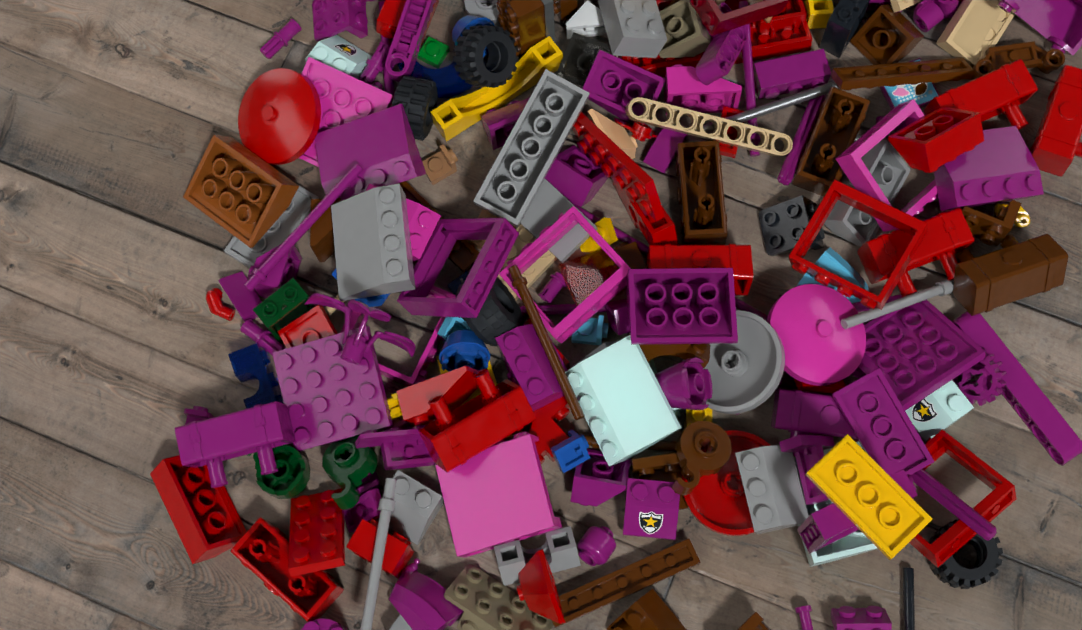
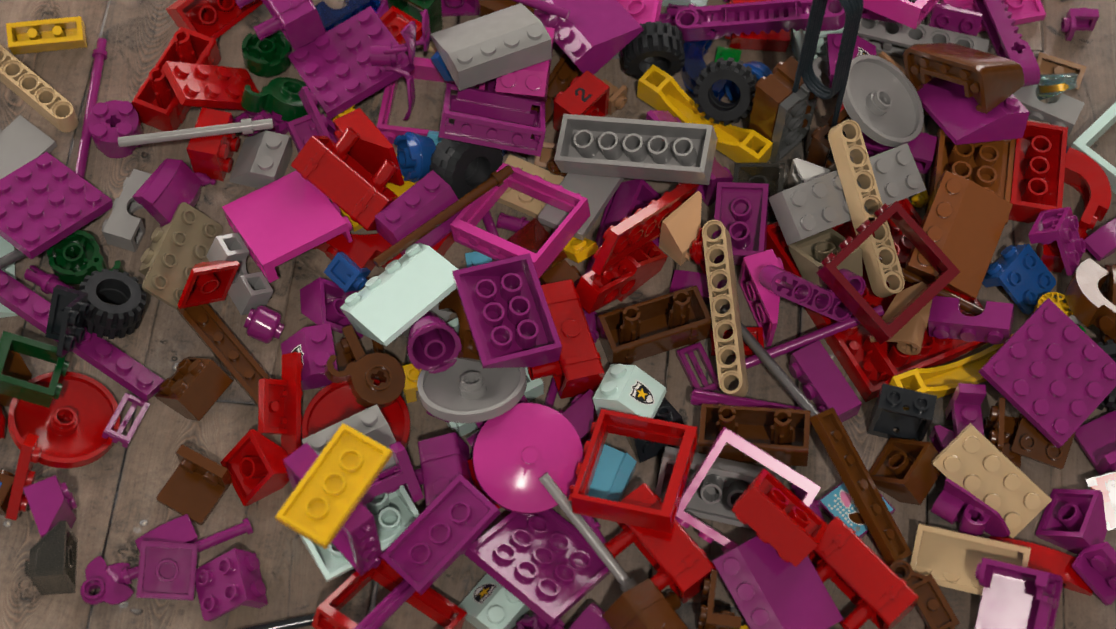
camera: 65 degrees right, 10 degrees down
(451, 189) = (584, 96): none -> red brick
(697, 544) = (281, 403): none -> red bracket
(746, 172) = (707, 364): none -> magenta tile
(750, 586) = (256, 467): none -> red slope
(770, 233) = (629, 391): none -> light aqua slope
(771, 283) = (581, 415): none -> magenta slope

